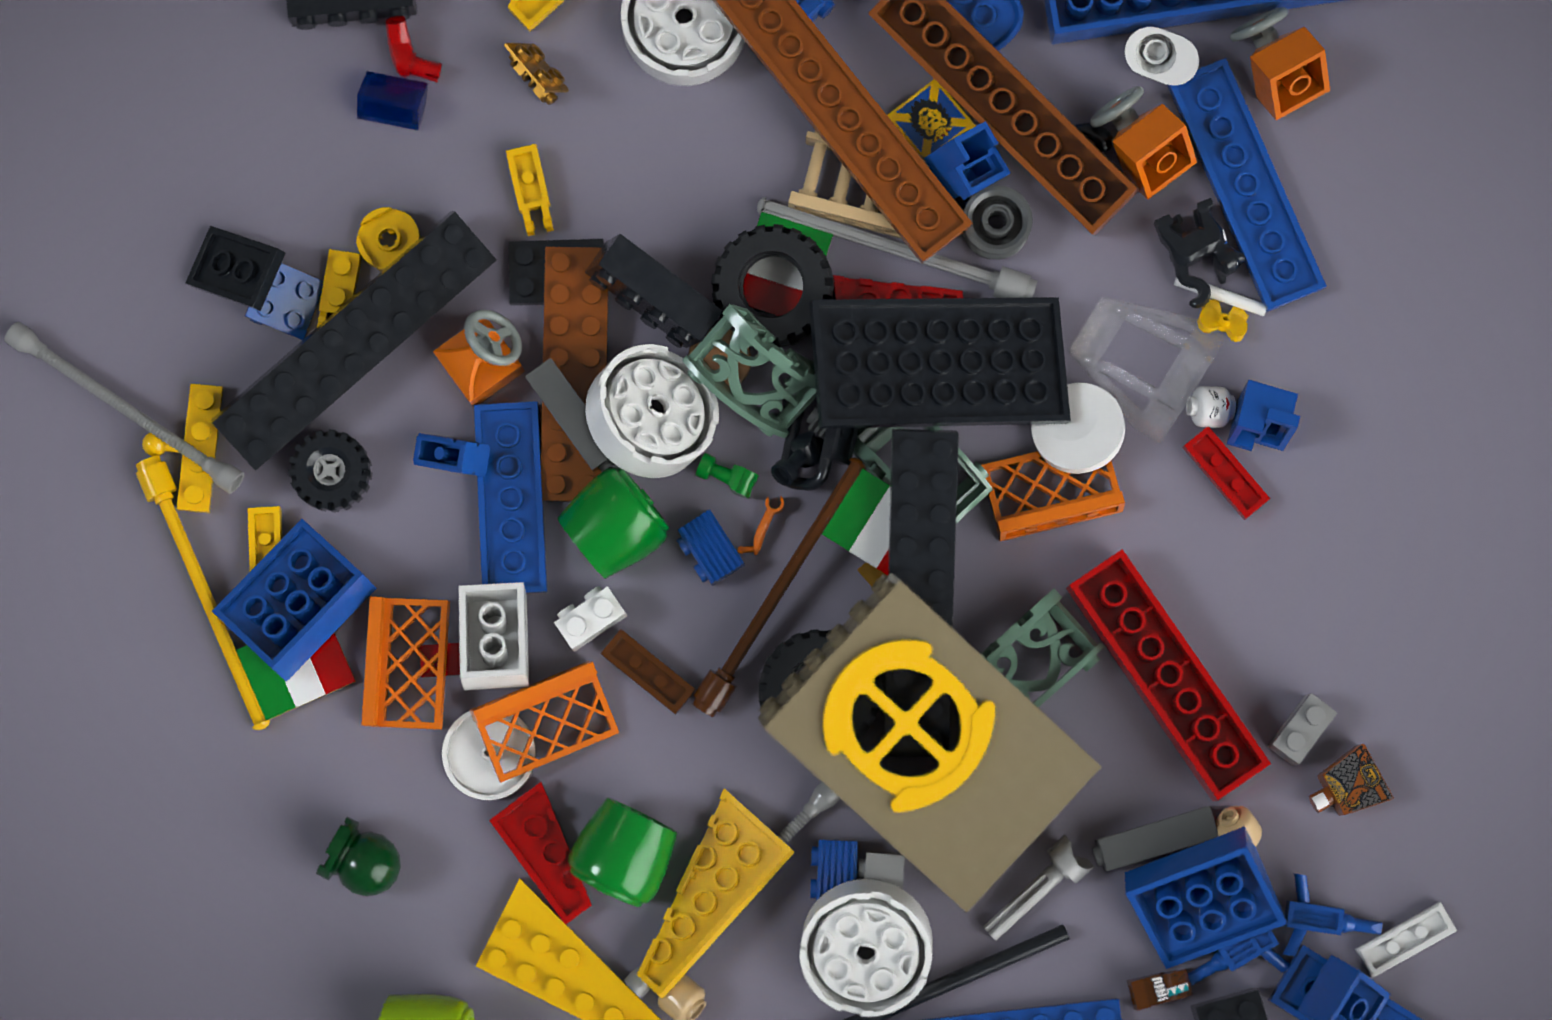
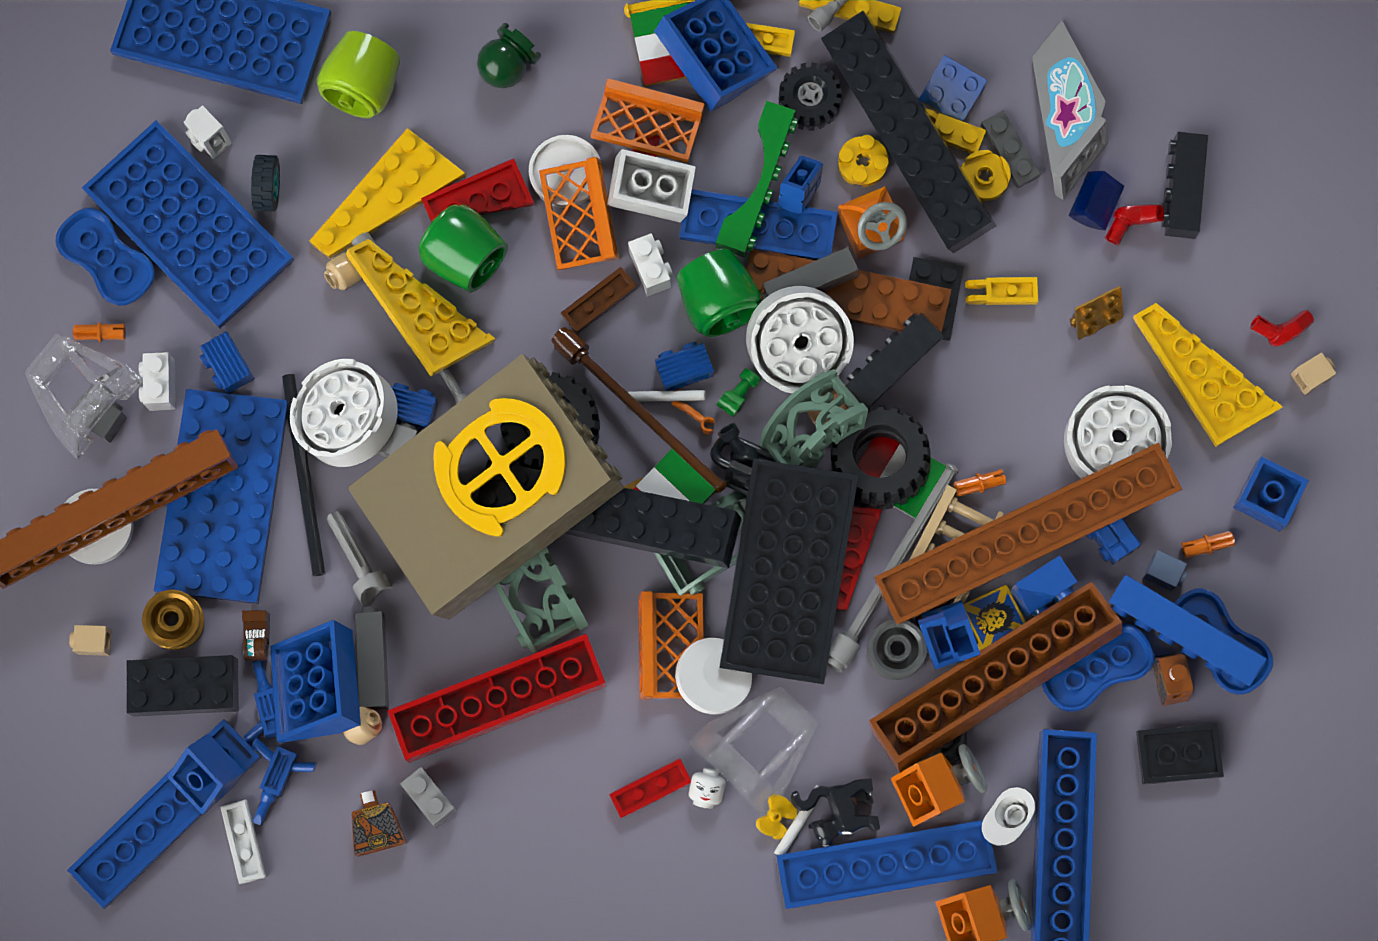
camera: 105 degrees right, 5 degrees down
(235, 268) = (983, 54): black plate -> none
(278, 154) = (1069, 109): none -> piece
(345, 216) = (1010, 147): none -> dark grey plate
(381, 389) = (866, 147): none -> yellow plate
(390, 500) = (739, 227): none -> green arch
(750, 560) = (689, 395): none -> white bar
(773, 169) = (979, 483): none -> orange axle
(882, 69) = (1043, 586): none -> blue slope
(1263, 417) = (689, 825): blue plate -> none

